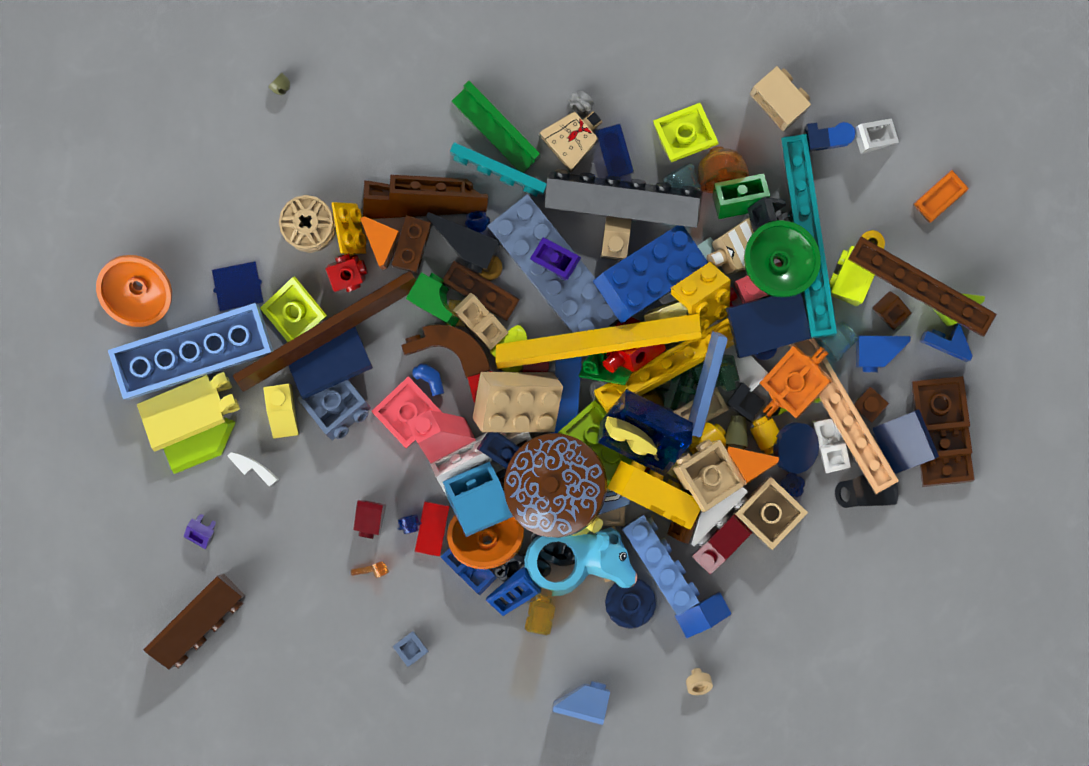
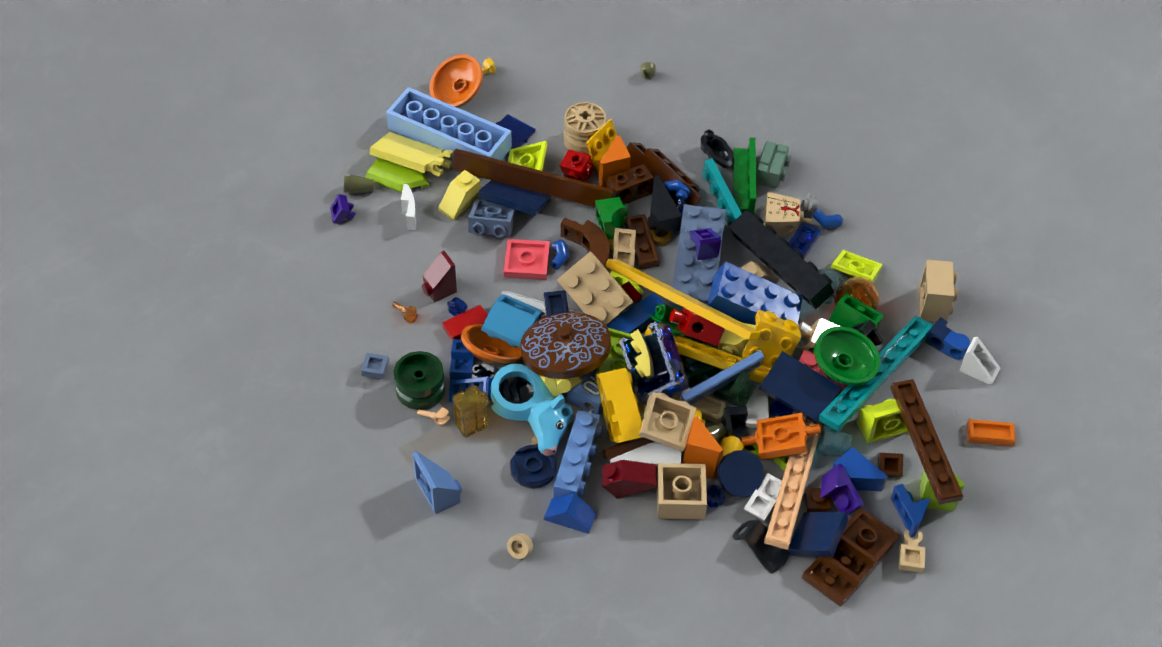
camera: 45 degrees right, 35 degrees down
(132, 231) = (488, 66): none -> yellow hand
(180, 490) = (356, 184): none -> olive cone
(194, 622) = (280, 238): reddish brown slope -> none
(440, 433) = (530, 270): coral slope -> none
(441, 120) = (717, 149): none -> black arm
(456, 207) = (681, 189): none -> blue arm
(466, 613) = (419, 380): none -> dark green wheel
(505, 87) = (772, 163): none -> sand green brick
(513, 637) = (439, 417): none -> light nougat hand
(618, 98) = (828, 222): none -> blue arm
(882, 384) = (841, 489): none -> dark purple slope
(986, 383) = (911, 554): none -> tan plate

